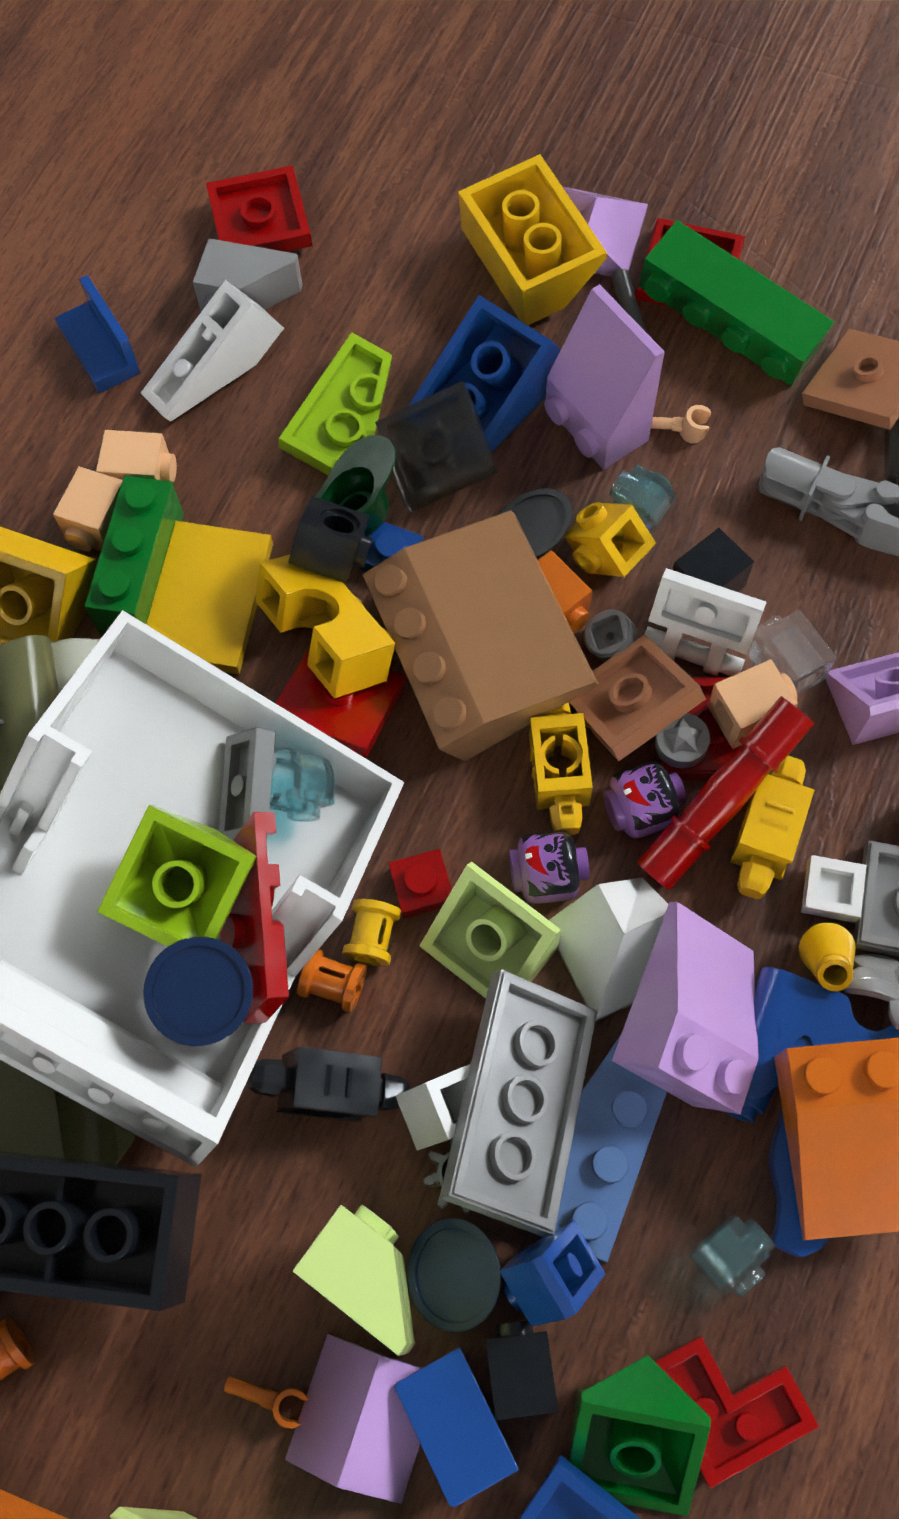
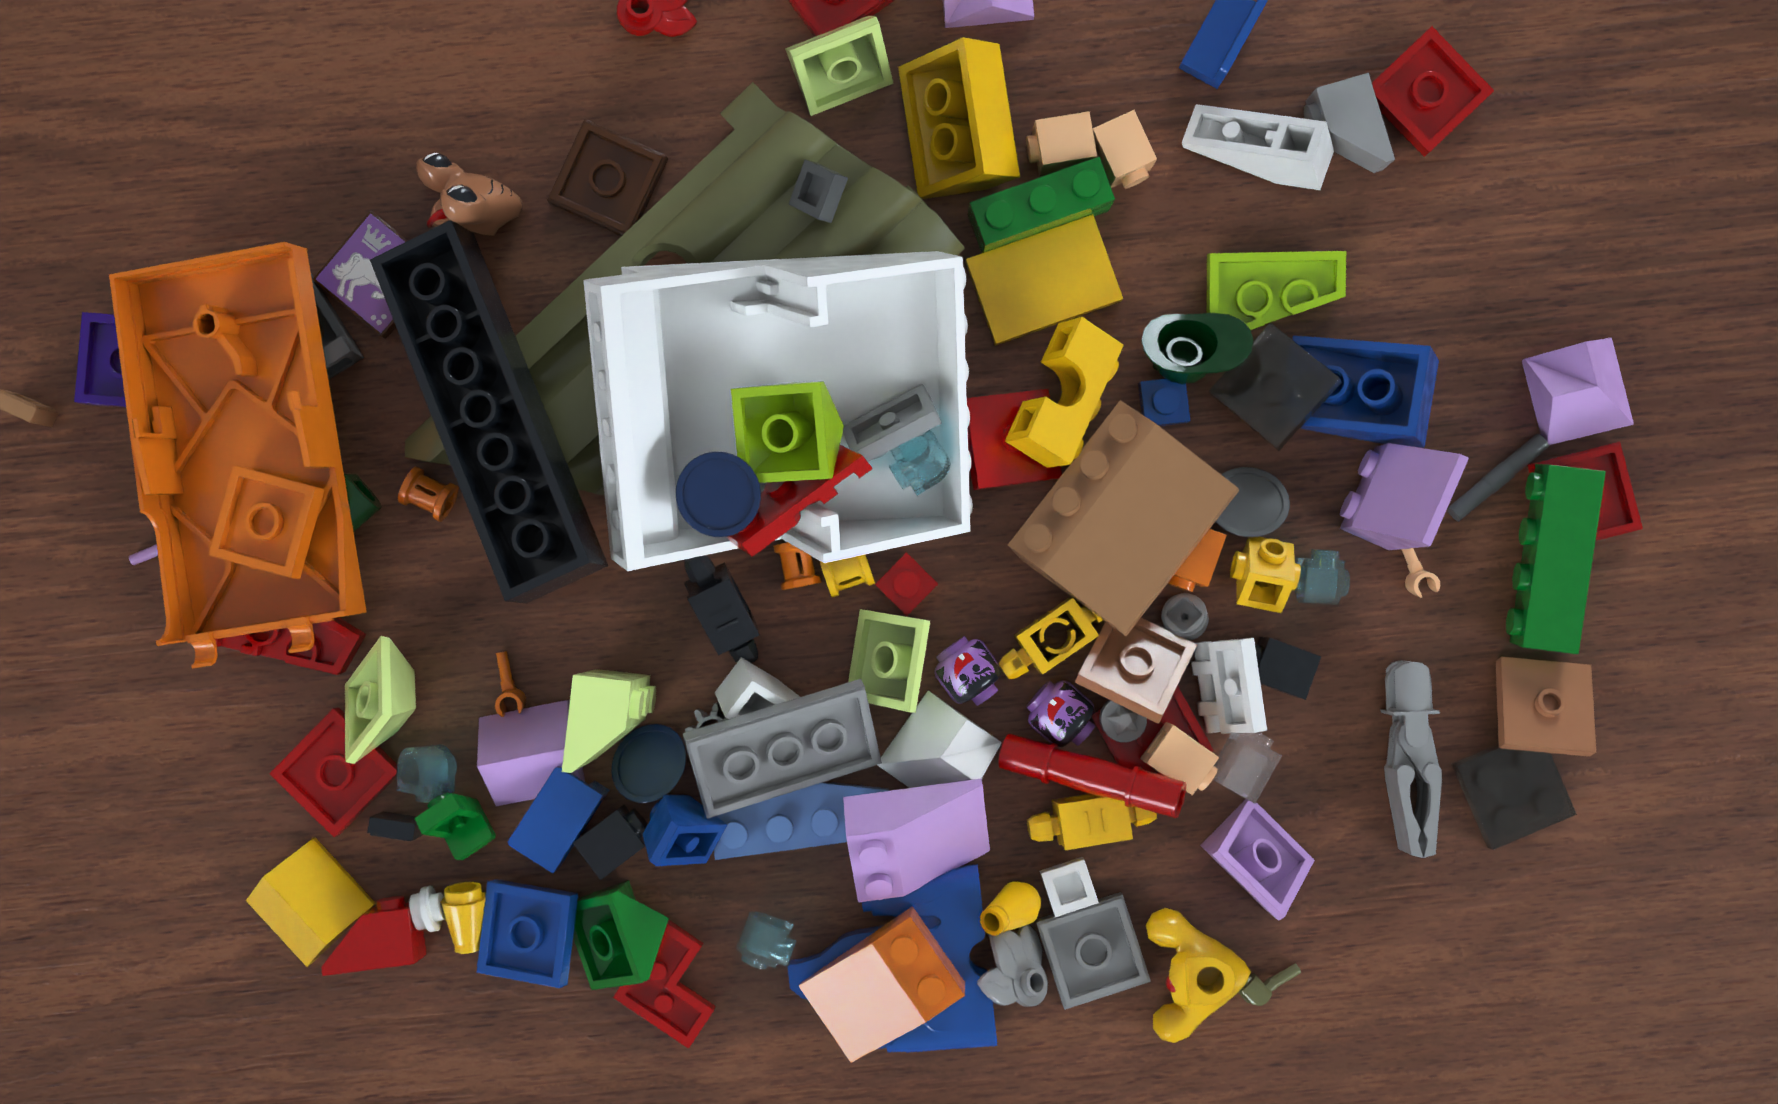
camera: 55 degrees right, 20 degrees up
(330, 540) = (1132, 360): black brick -> none
(530, 238) = (1527, 349): yellow slope -> none

